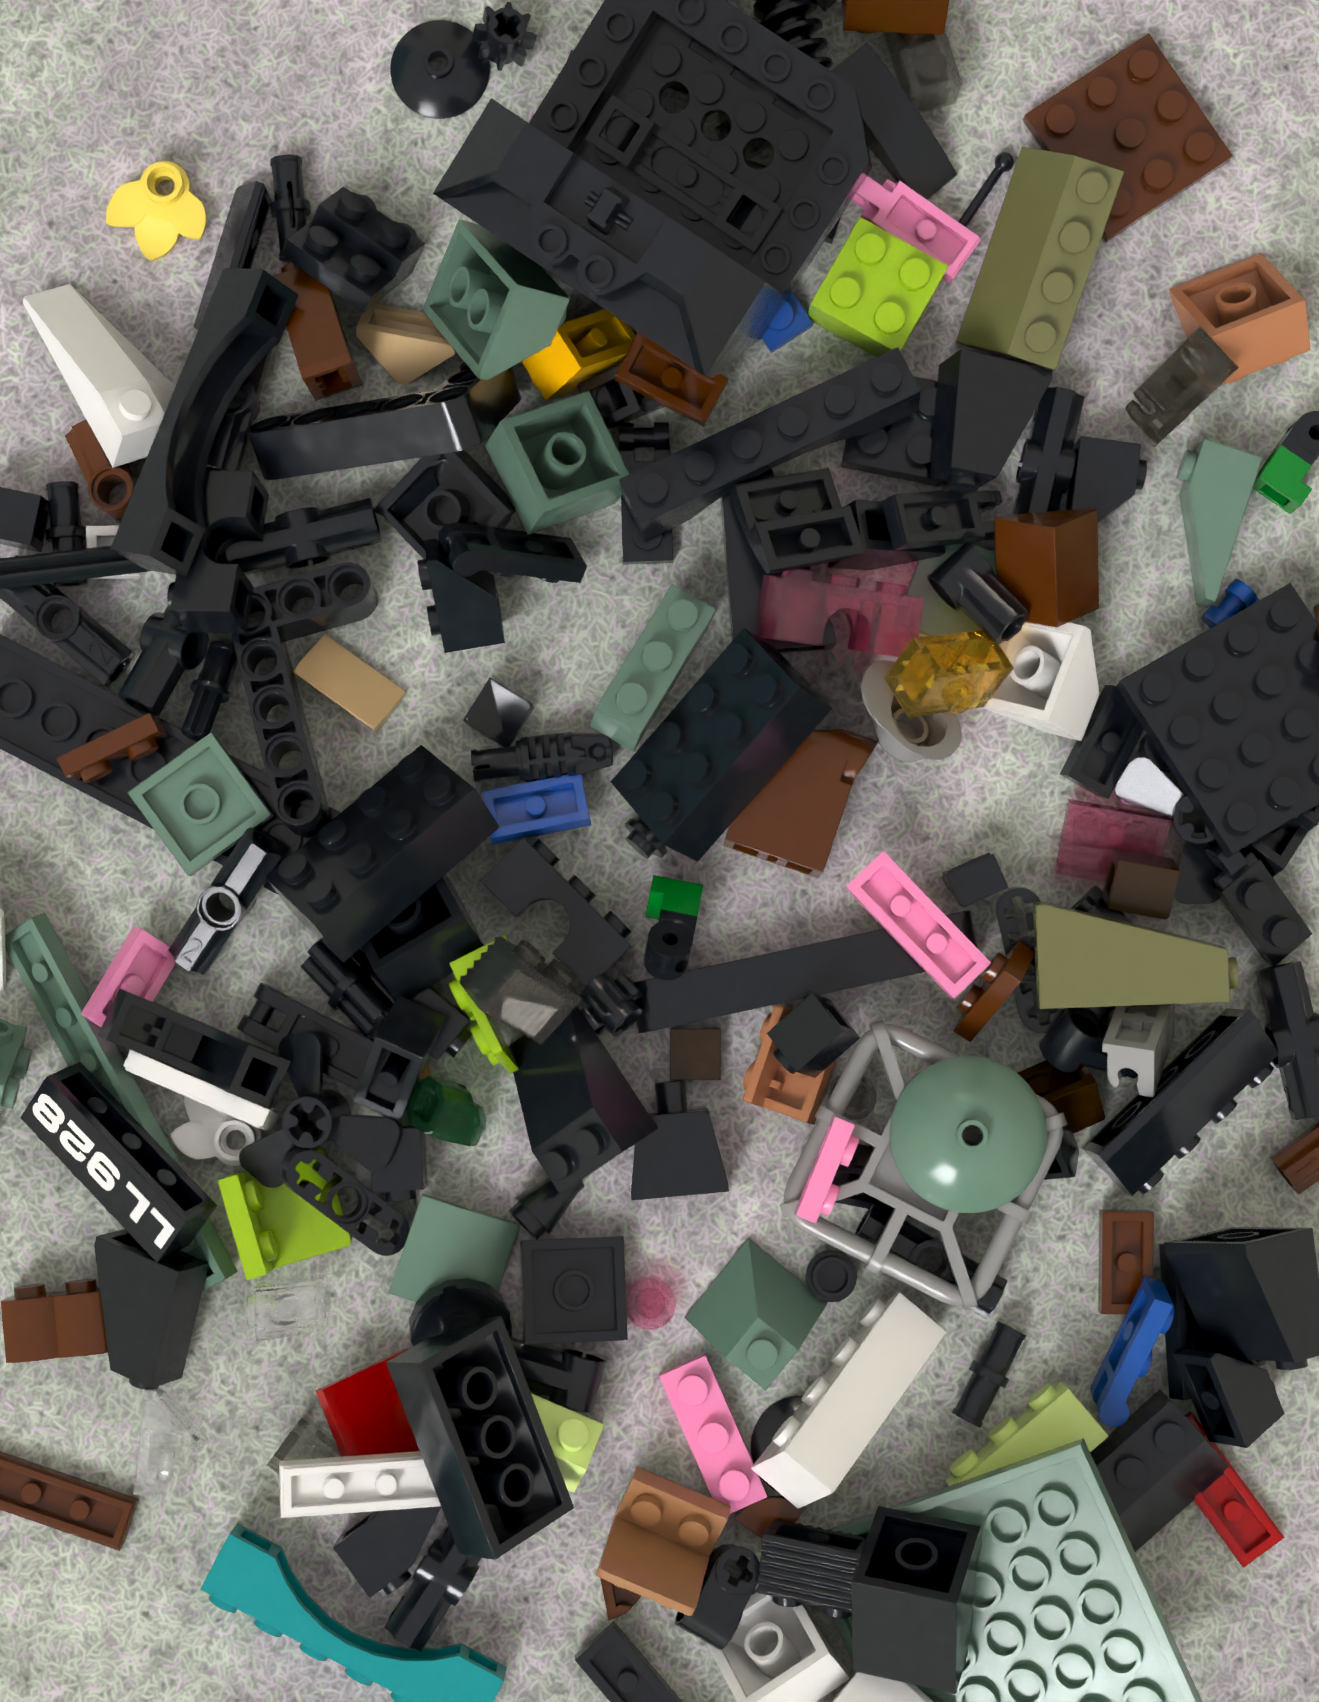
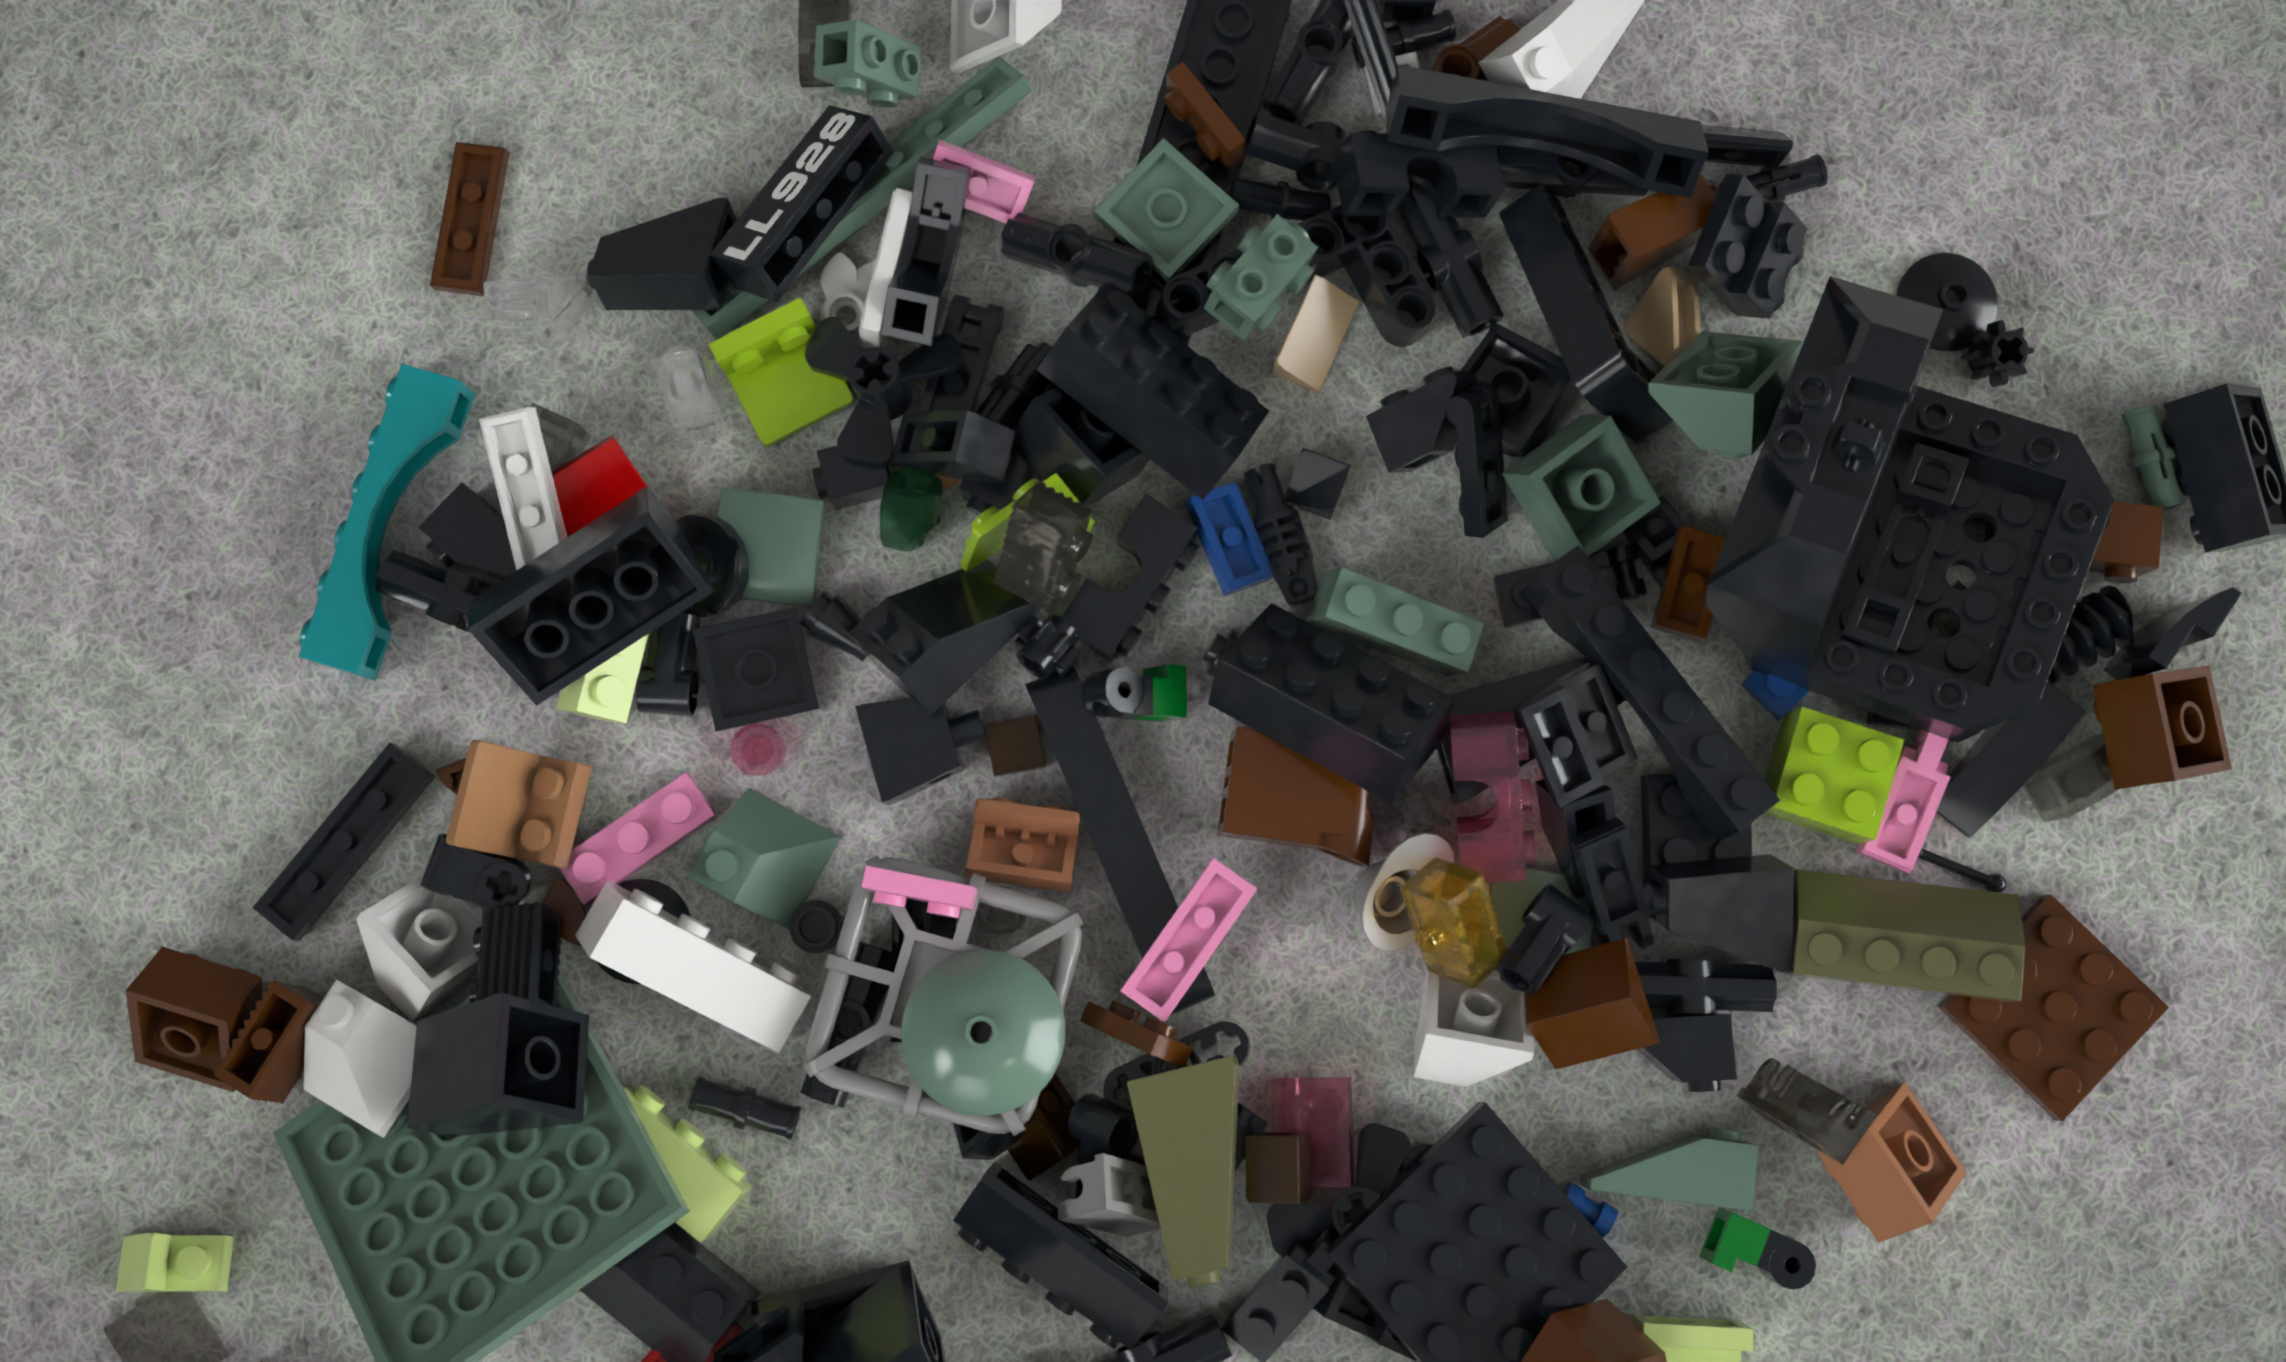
camera: 85 degrees right, 5 degrees down
(53, 1323) = (637, 175): reddish brown brick -> none
(155, 216) = (1733, 61): light yellow plate -> none
(285, 713) = (1270, 265): none -> sand green brick
(325, 1168) = (832, 399): black beam -> none
(579, 352) = (1694, 484): yellow slope -> none
(812, 1036) = (1054, 854): black brick -> none
(975, 880) = (1247, 994): black slope -> none
(1105, 746) = (1414, 1103): black plate -> none
(1124, 1257) = (884, 1229): reddish brown plate -> none
(1131, 1351) = (792, 1251): blue plate -> none

